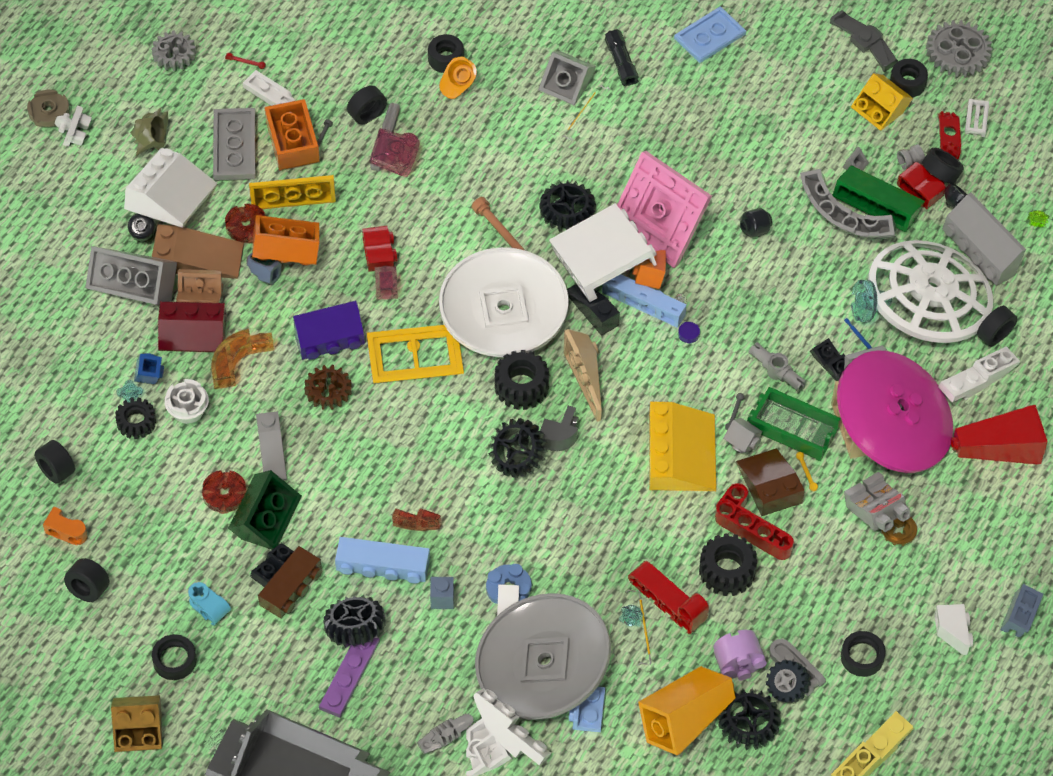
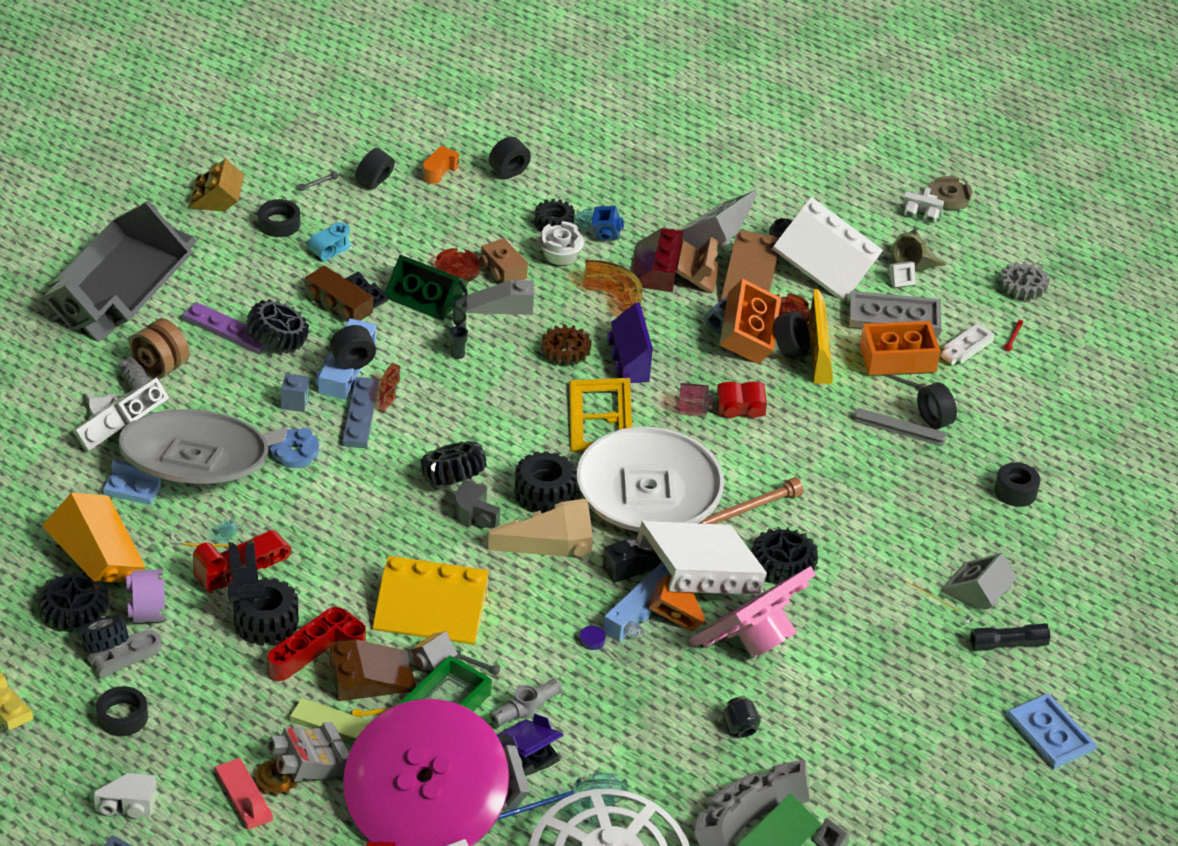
camera: 95 degrees right, 15 degrees down
(111, 649) = (302, 187): none -> dark grey hinge
(179, 138) = (902, 274): none -> white tile
(216, 450) = (503, 261): none -> medium nougat brick
(292, 210) = (792, 334): none -> black tyre
(345, 469) = (459, 334): none -> black flag
(395, 151) = (873, 426): clear pink slope -> none
(395, 539) = (353, 347): none -> black tyre
(412, 712) = (159, 348): none -> medium nougat wheel
(451, 539) = (361, 412): none -> sand blue plate
(457, 77) = (980, 488): light orange piece -> none
(702, 576) = (244, 578): none -> black flag
(816, 361) = (530, 735): none -> dark purple piece
(831, 492) = (314, 714): none -> yellowish green tile
(921, 550) = (244, 793): none -> coral hinge

